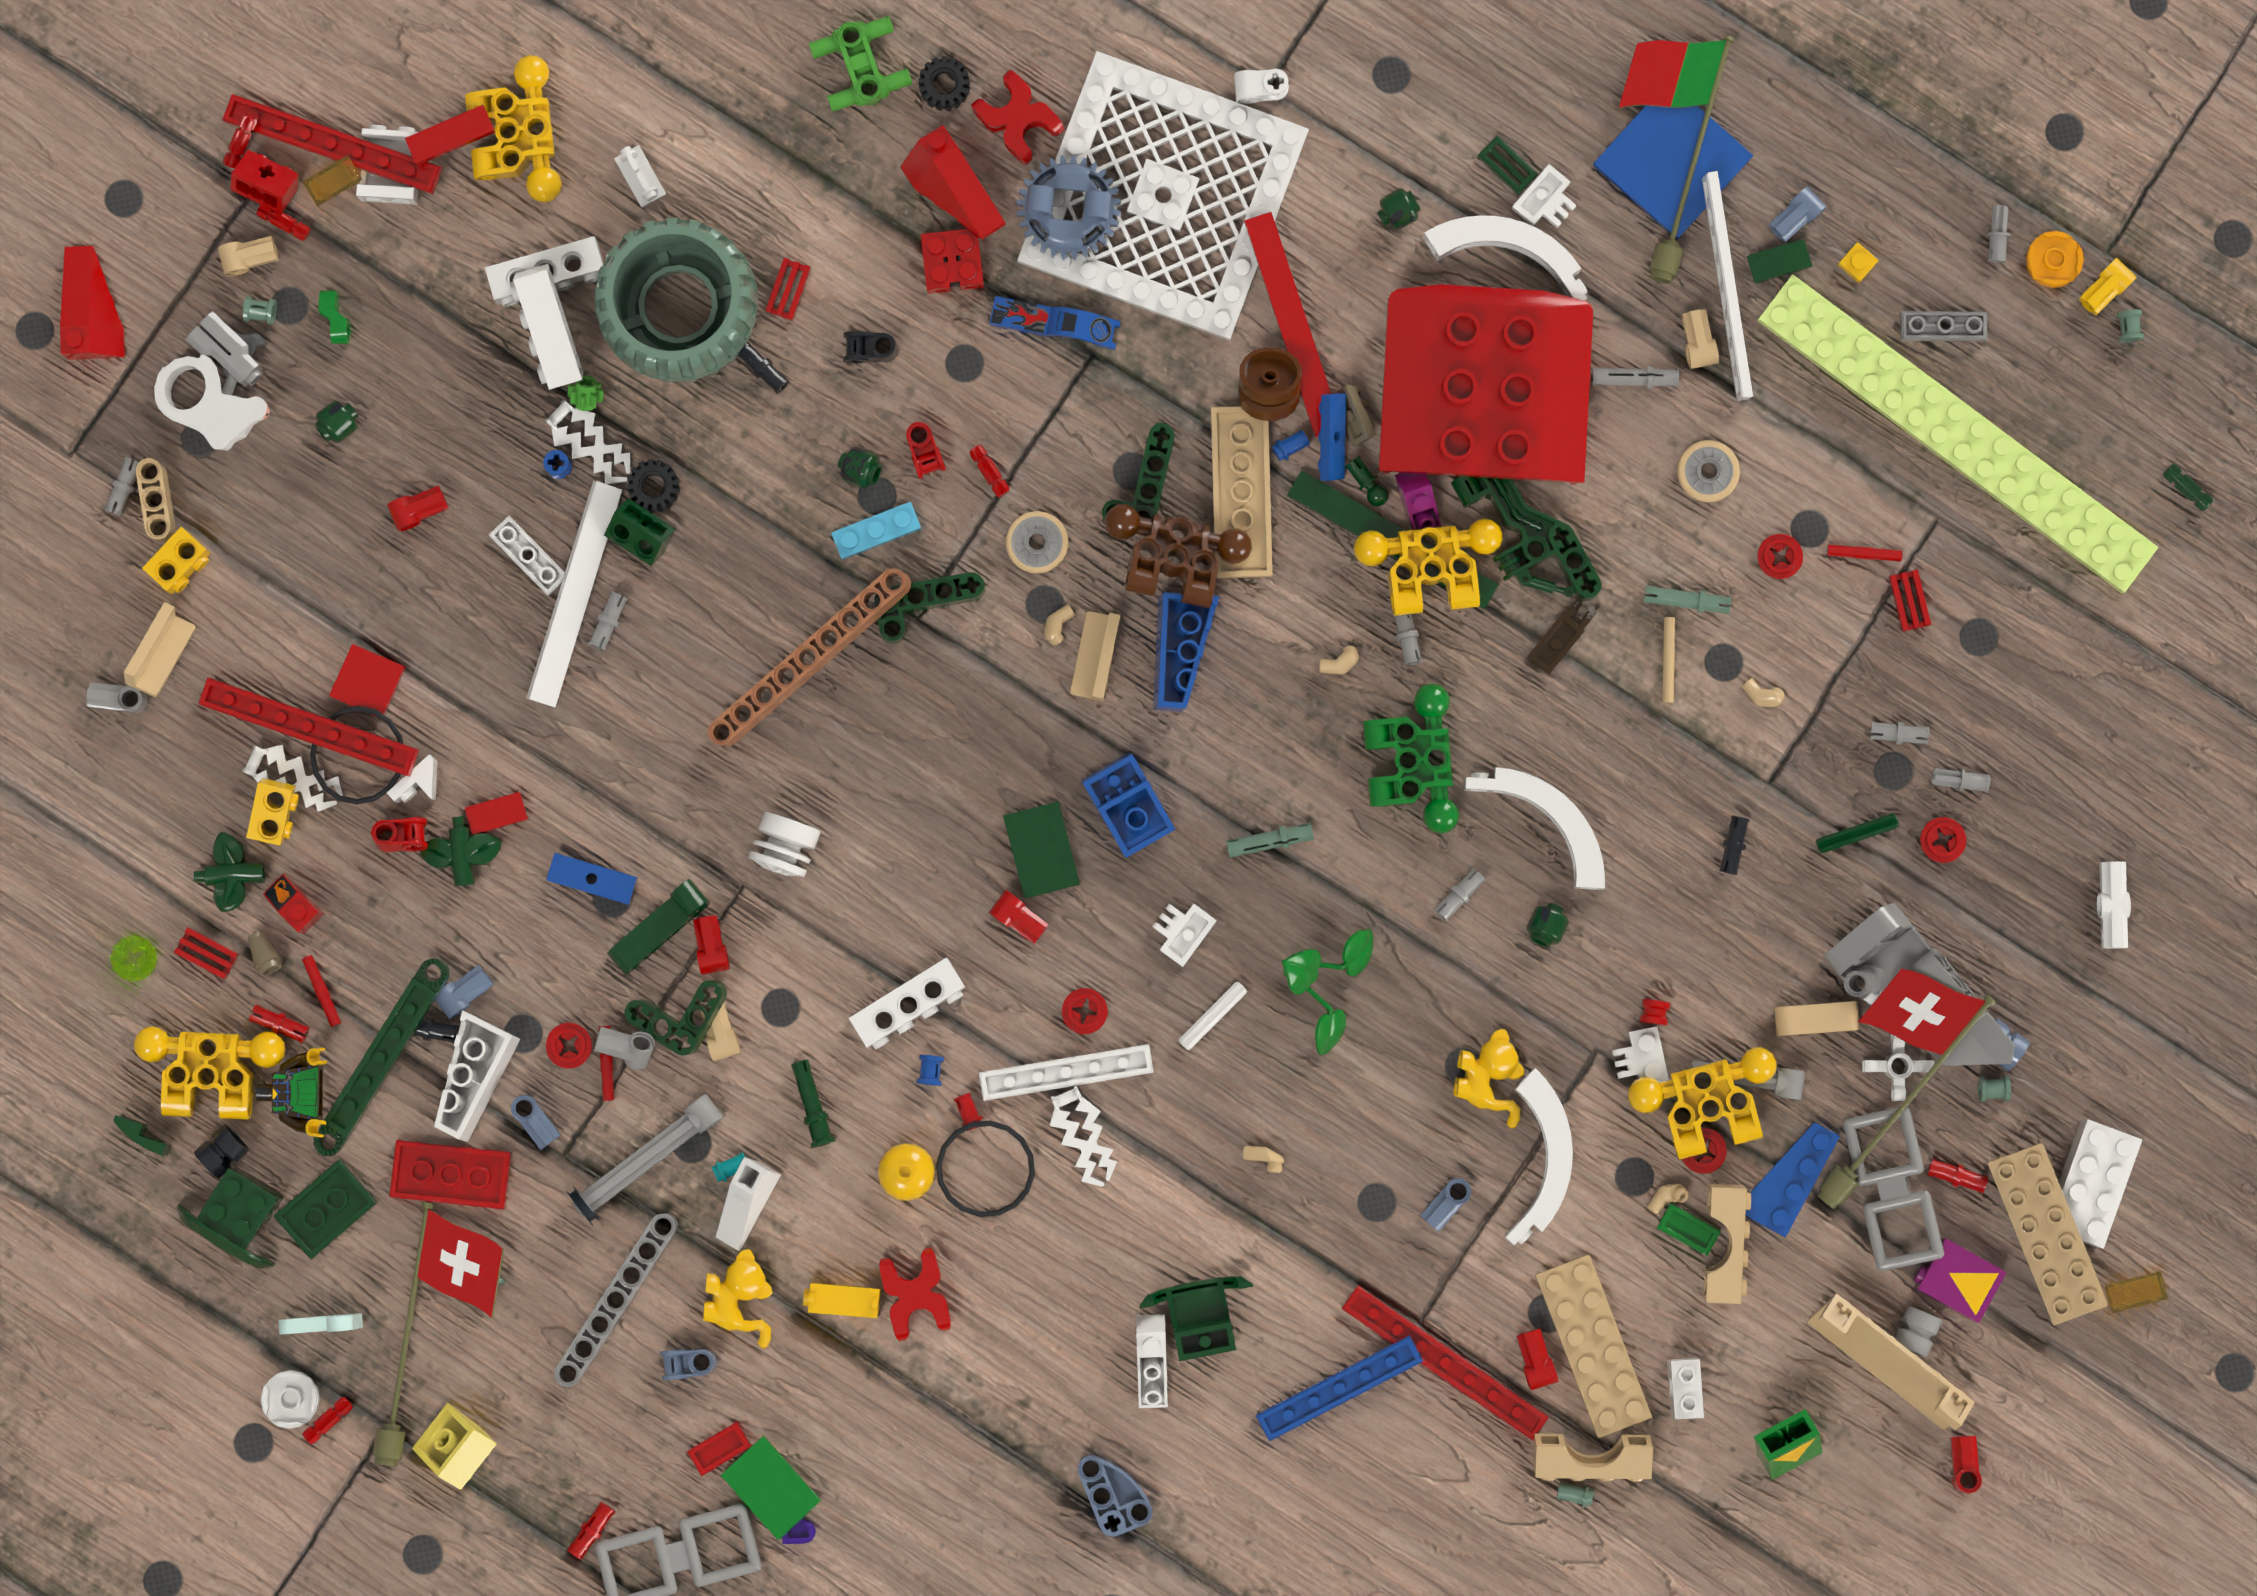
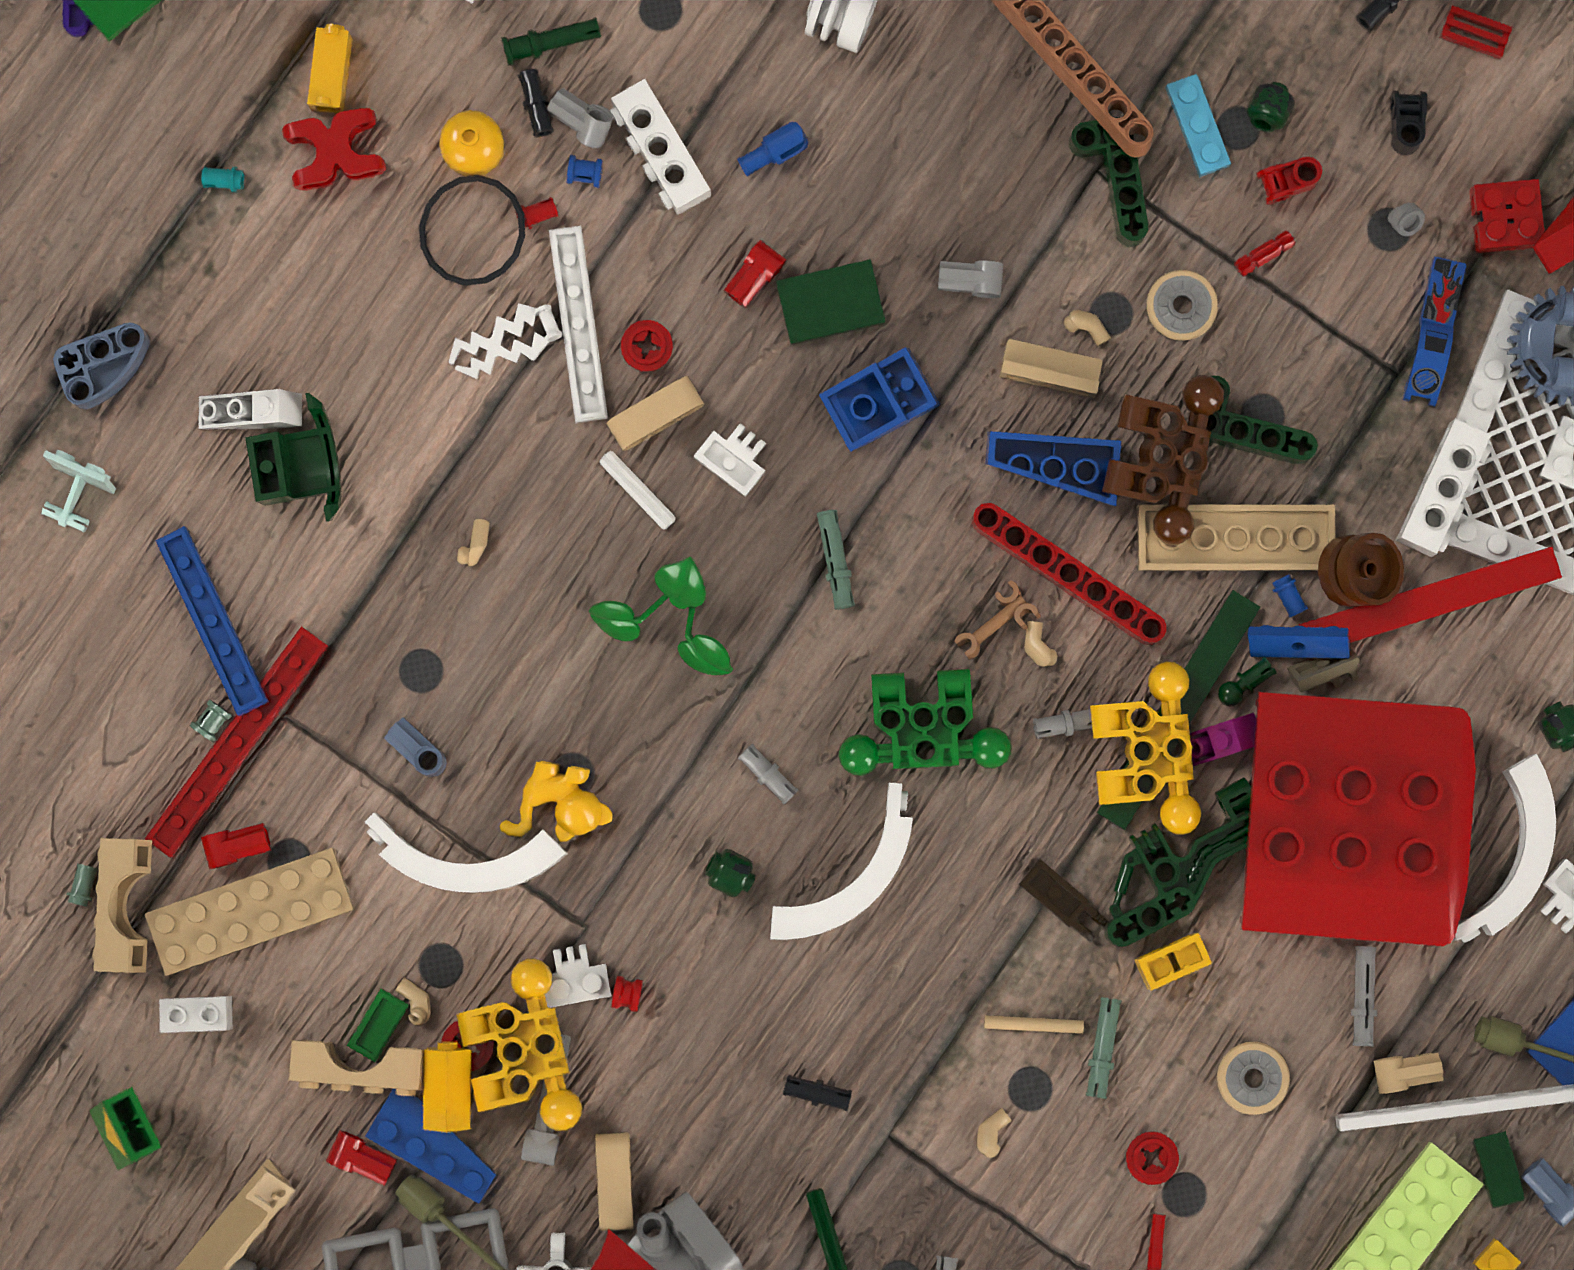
camera: 90 degrees right, 0 degrees up
(869, 1115) = (535, 103): none -> black pin
(886, 1066) = (589, 121): none -> light grey piece
(906, 901) = (775, 148): none -> blue arm
(943, 1393) = (223, 178): none -> teal pin
(956, 348) = (1407, 219): none -> light grey tile
(1018, 720) = (980, 279): none -> light grey piece
(1145, 1001) = (655, 413): none -> tan beam
(1205, 1519) = (89, 474): none -> light aqua plate
(1232, 338) = (1415, 530): none -> white brick
(1282, 623) = (1085, 575): none -> red beam
(1307, 682) = (1014, 607): none -> medium nougat bar
(1427, 1385) = (211, 720): none -> sand green bush
(1612, 541) = (1173, 961): none -> yellow brick
(1743, 1165) = (446, 1088): none -> yellow brick
(1801, 1247) = (353, 1154): none -> red piece

